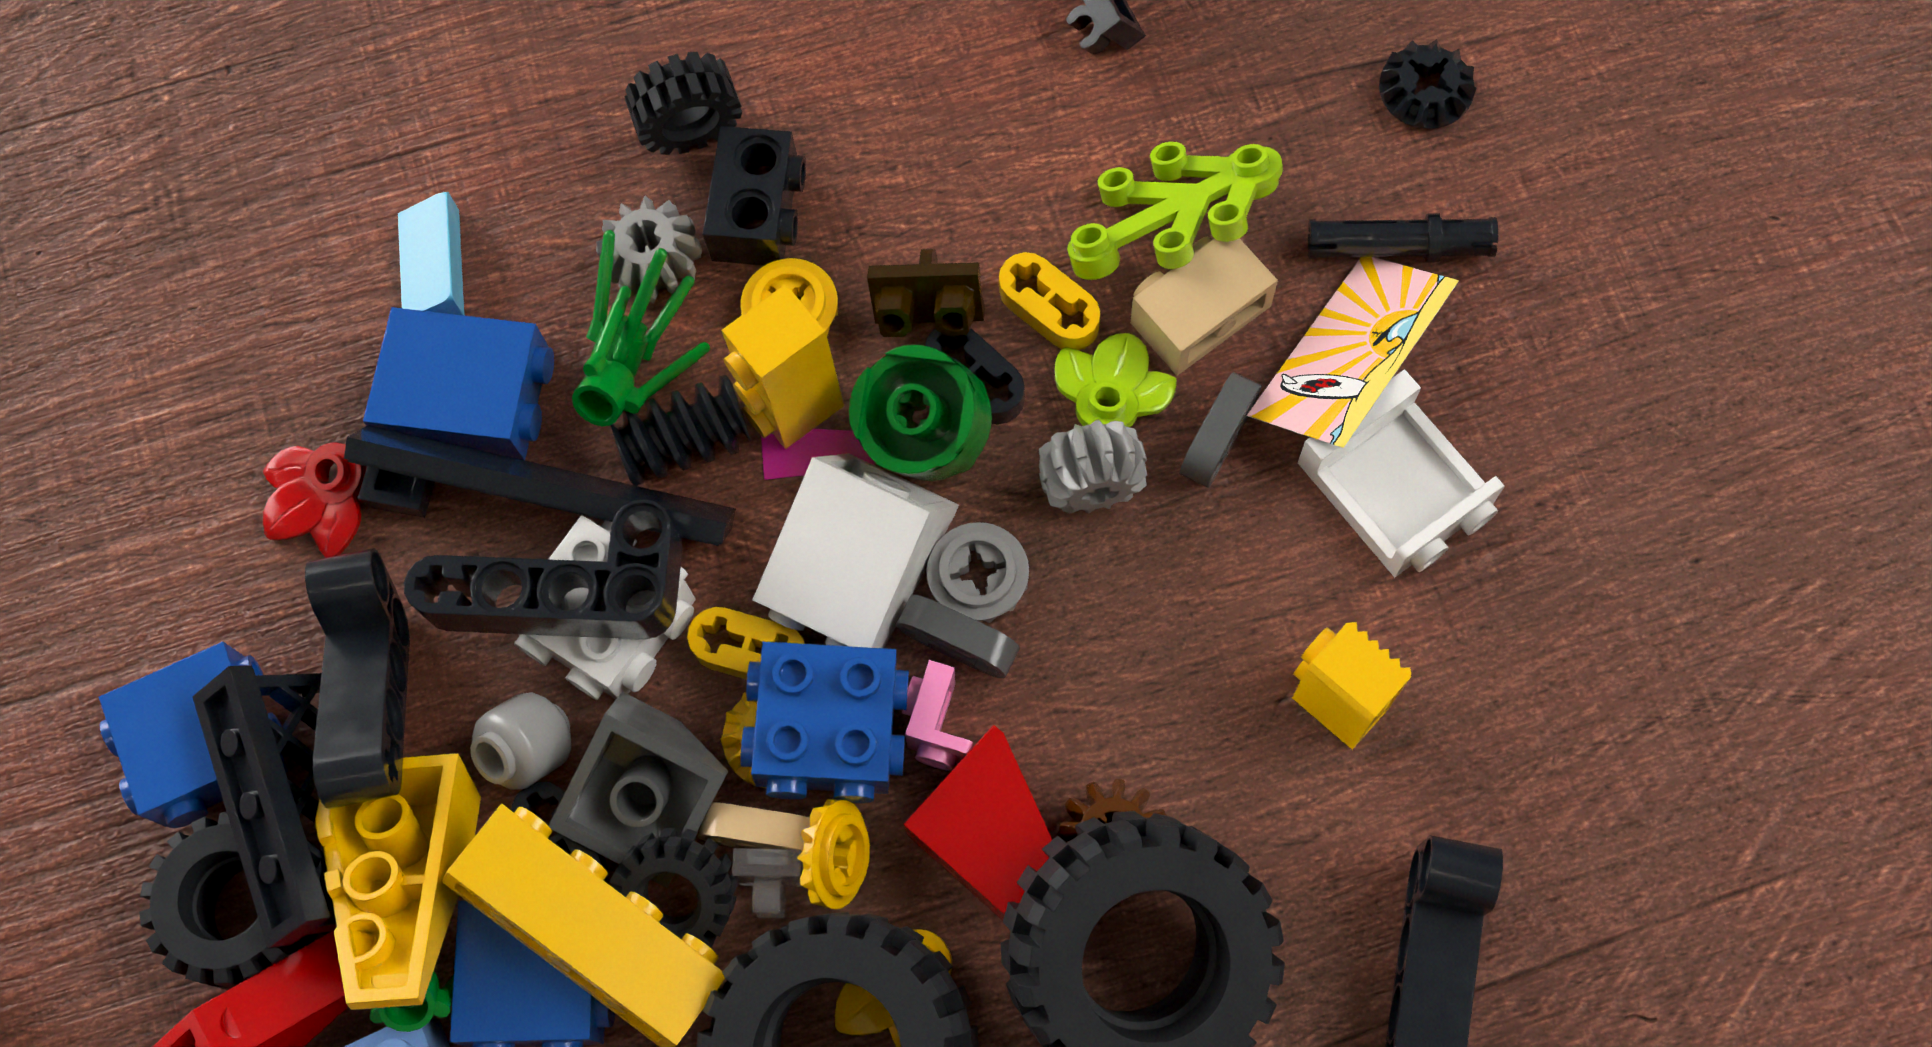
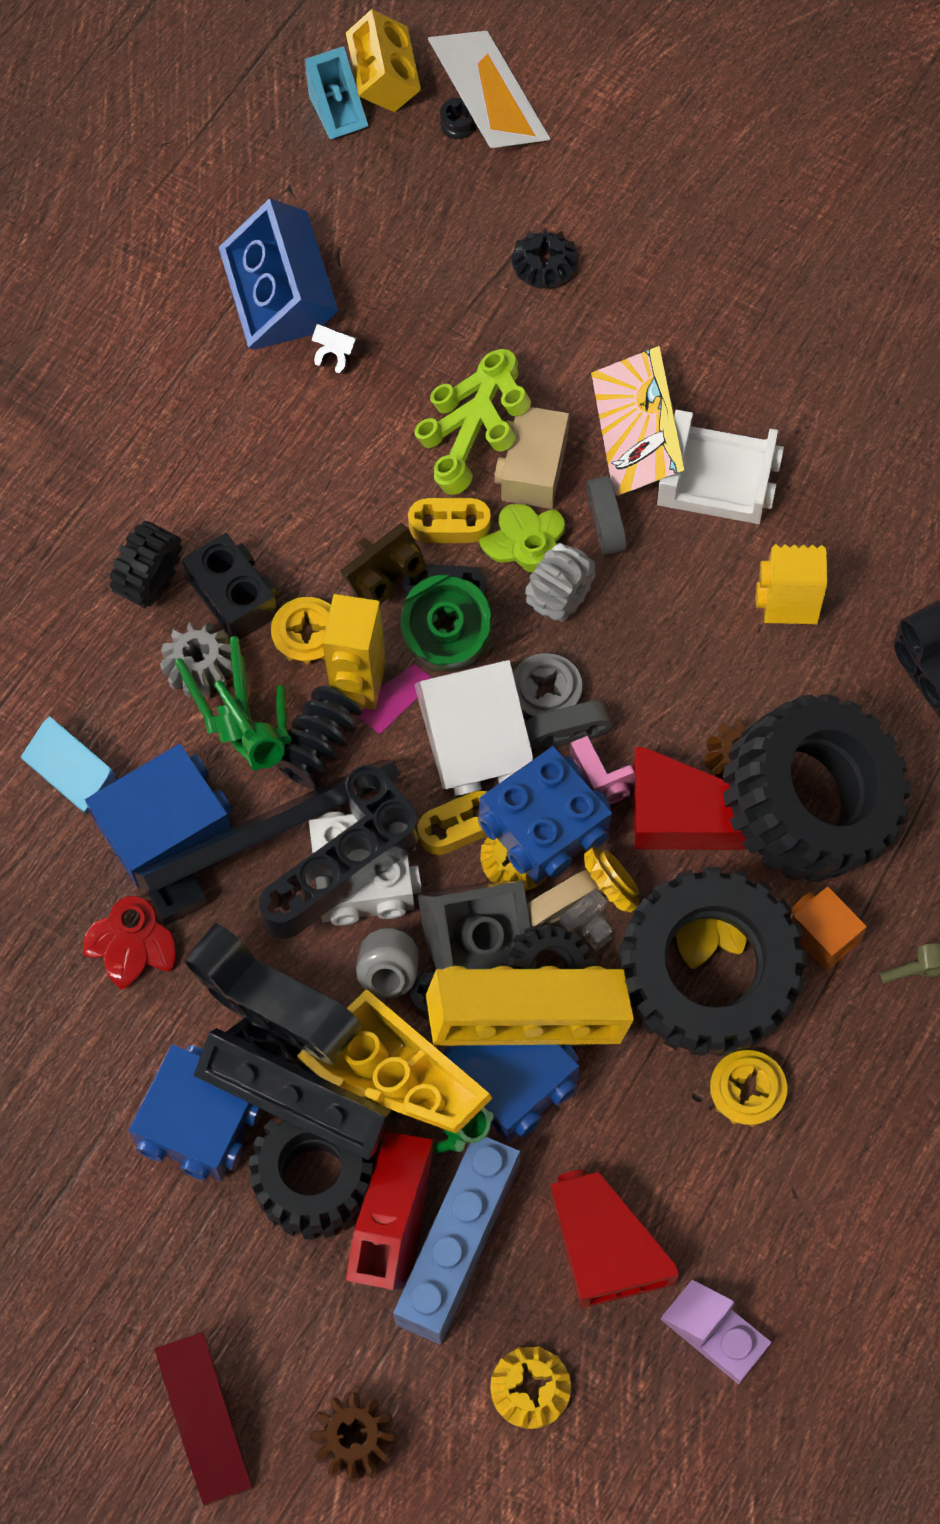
camera: 45 degrees left, 5 degrees down
(1403, 238) = (620, 337): black pin -> none

